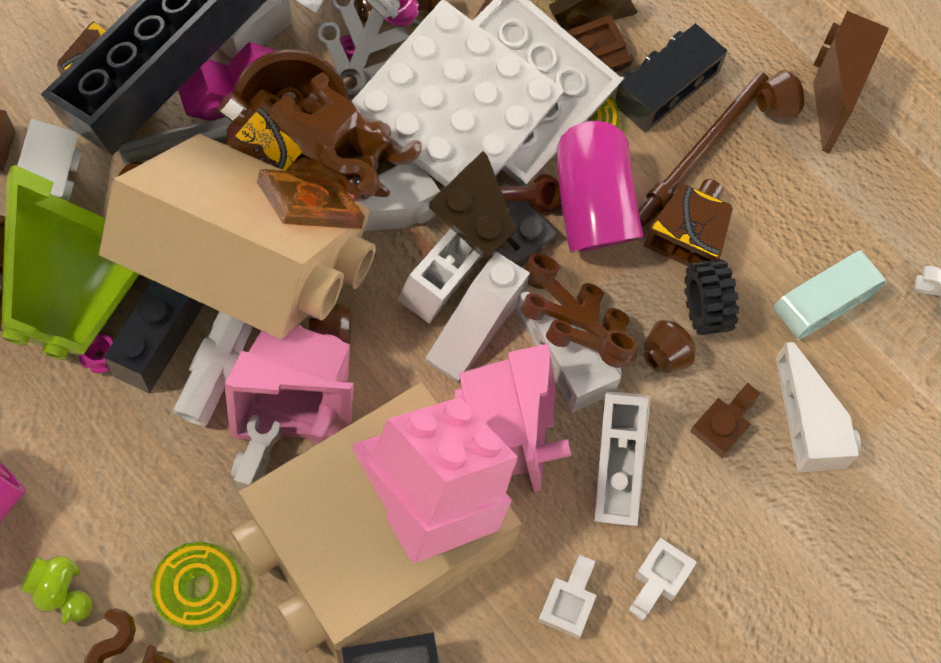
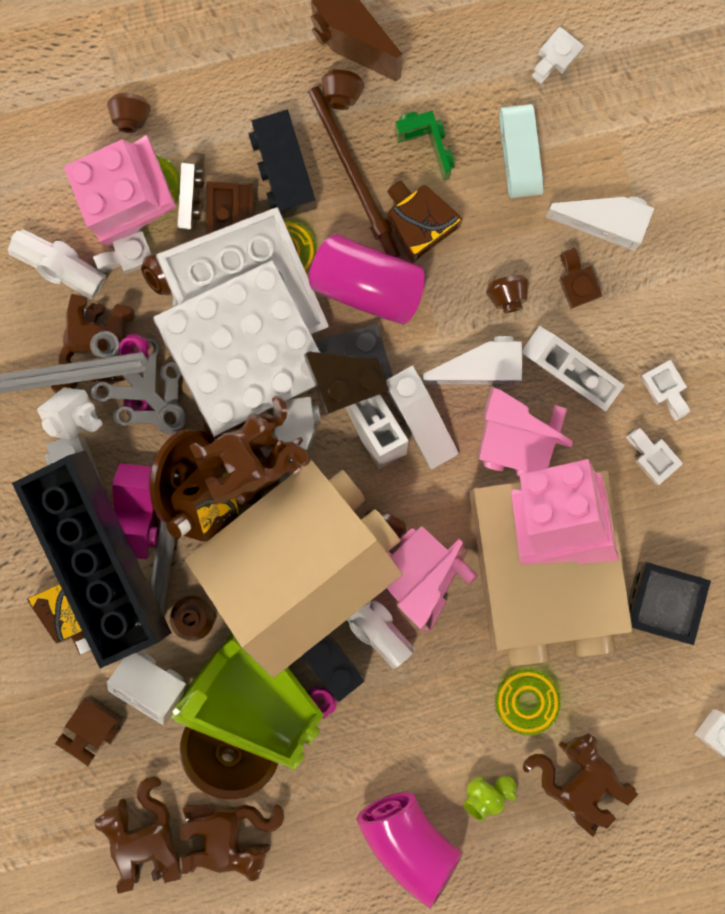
camera: 55 degrees left, 20 degrees up
(252, 463) = (460, 630): white plate -> none
(310, 199) = (298, 504): clear orange tile -> none
(540, 193) = (340, 319): reddish brown plate -> none
(610, 340) = (497, 336): reddish brown plant -> none
(711, 297) = (488, 241): black tyre -> none
(792, 185) = (417, 125): none -> green bracket

